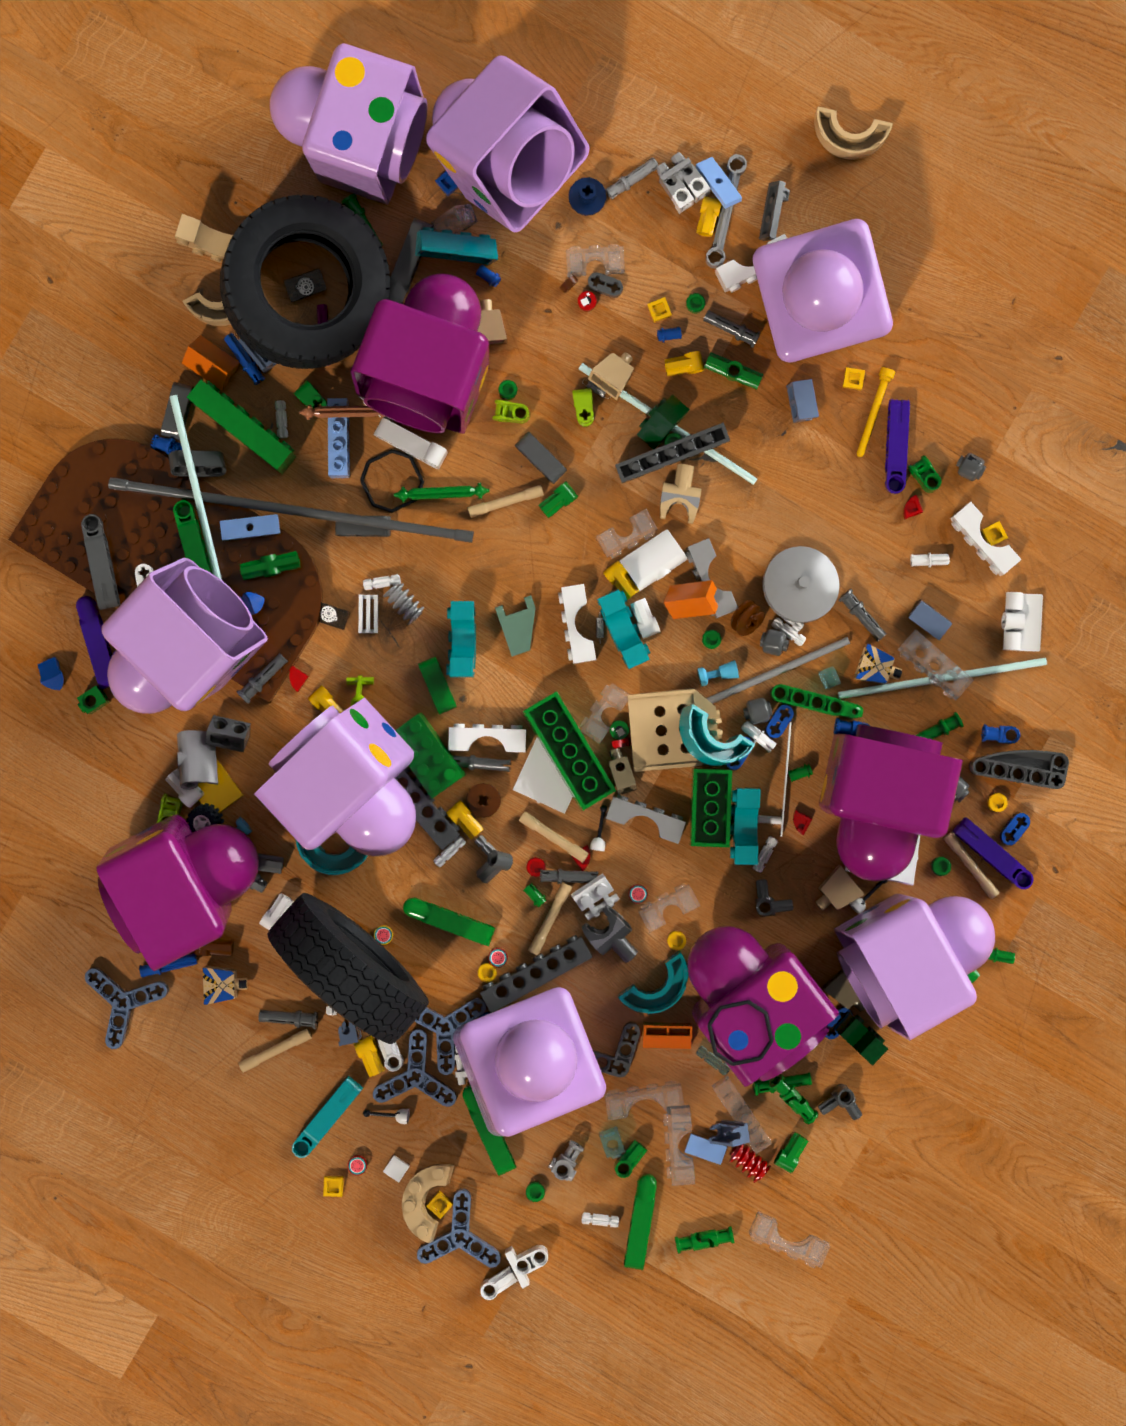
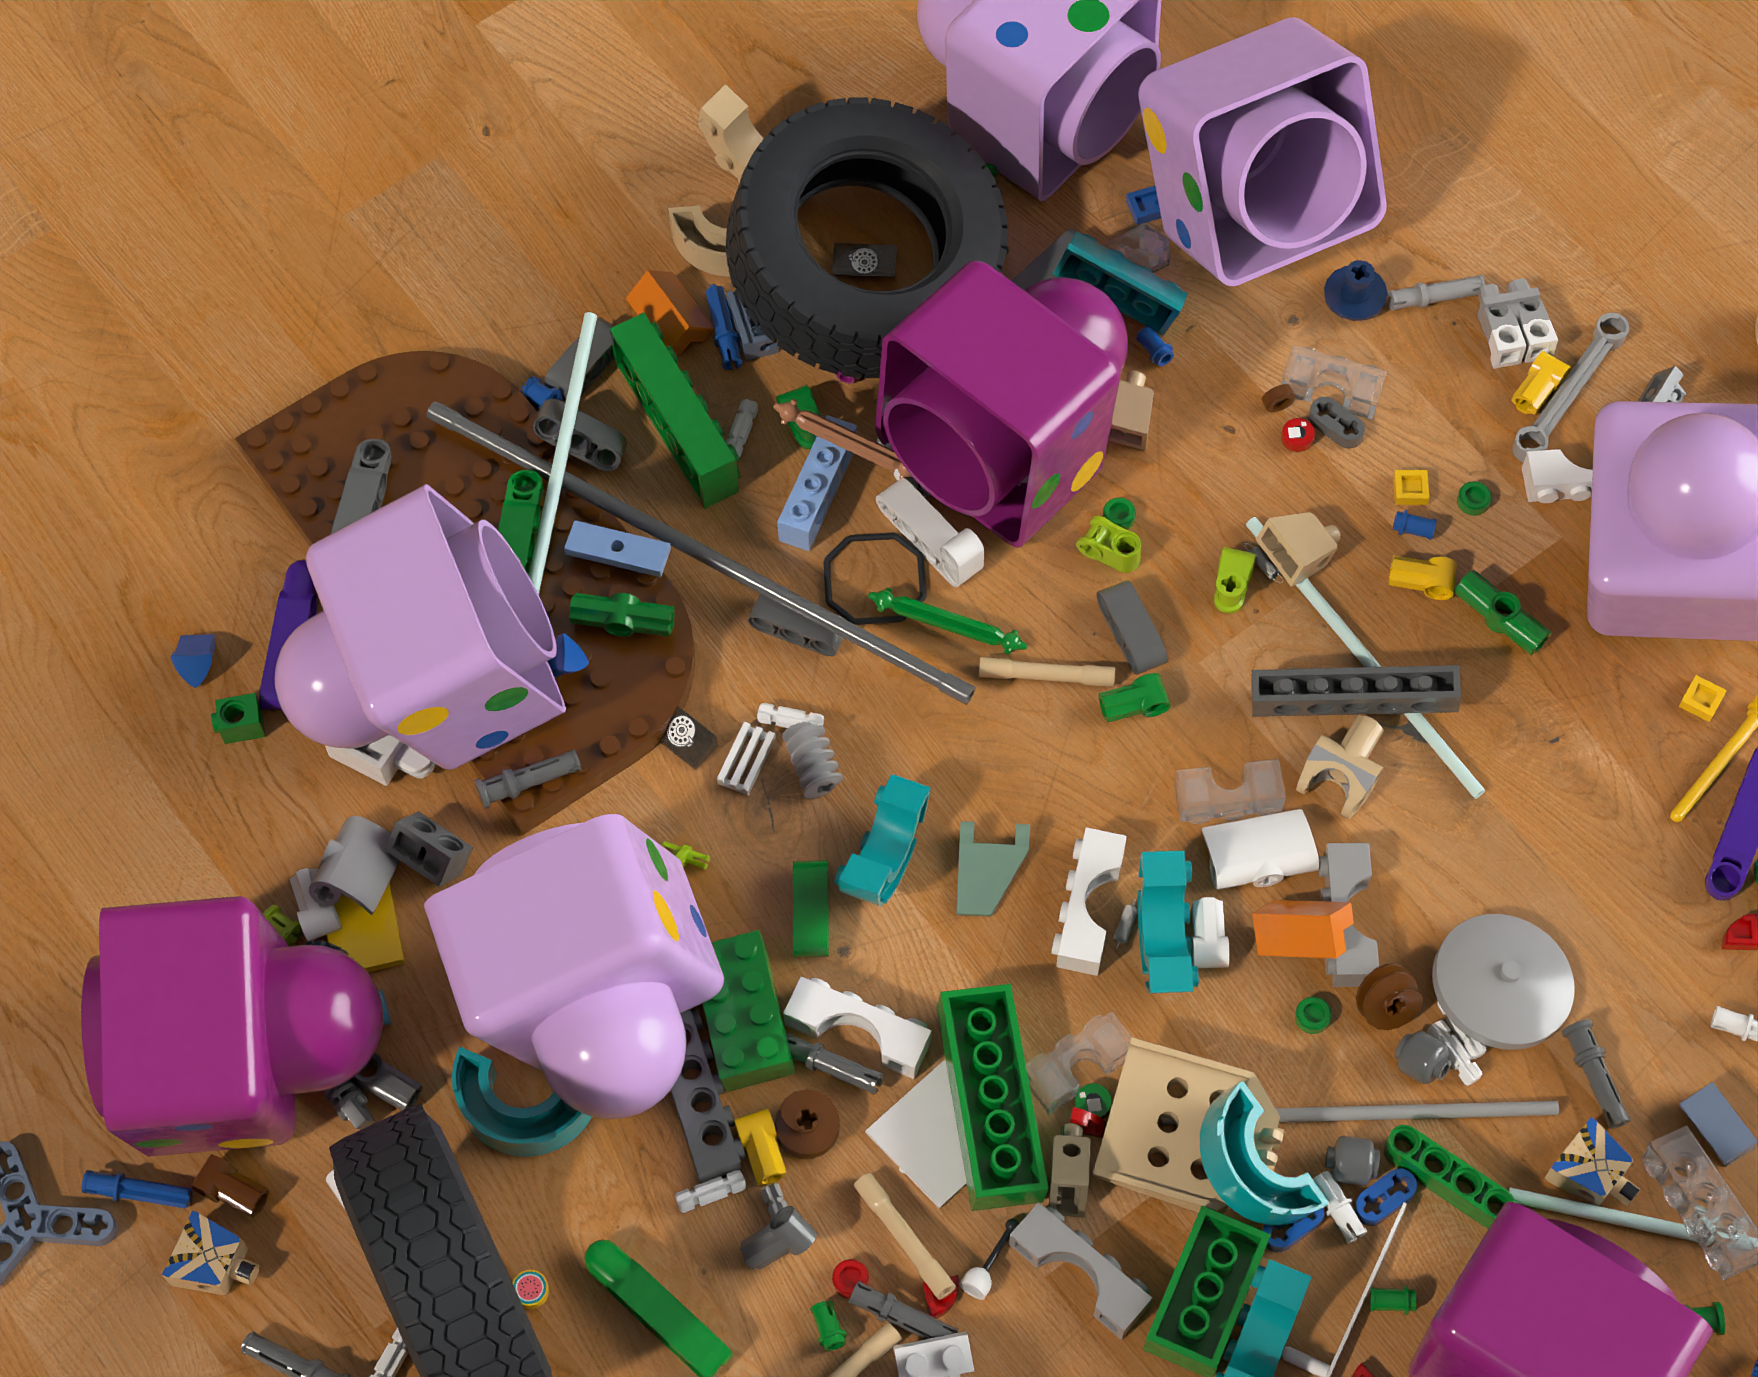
camera: 30 degrees right, 25 degrees down
(297, 678) = (583, 808): red tile -> none
(618, 577) = (1194, 845): yellow piece -> none
(662, 420) = (1356, 637): dark green brick -> none
(718, 182) = (1575, 340): light blue tile -> none
(725, 671) = (1318, 1073): medium azure piece -> none
(740, 332) = (1533, 561): dark grey pin -> none
(802, 400) = (1604, 697): sand blue hinge -> none
(829, 677) = (1502, 1155): clear light blue slope -> none

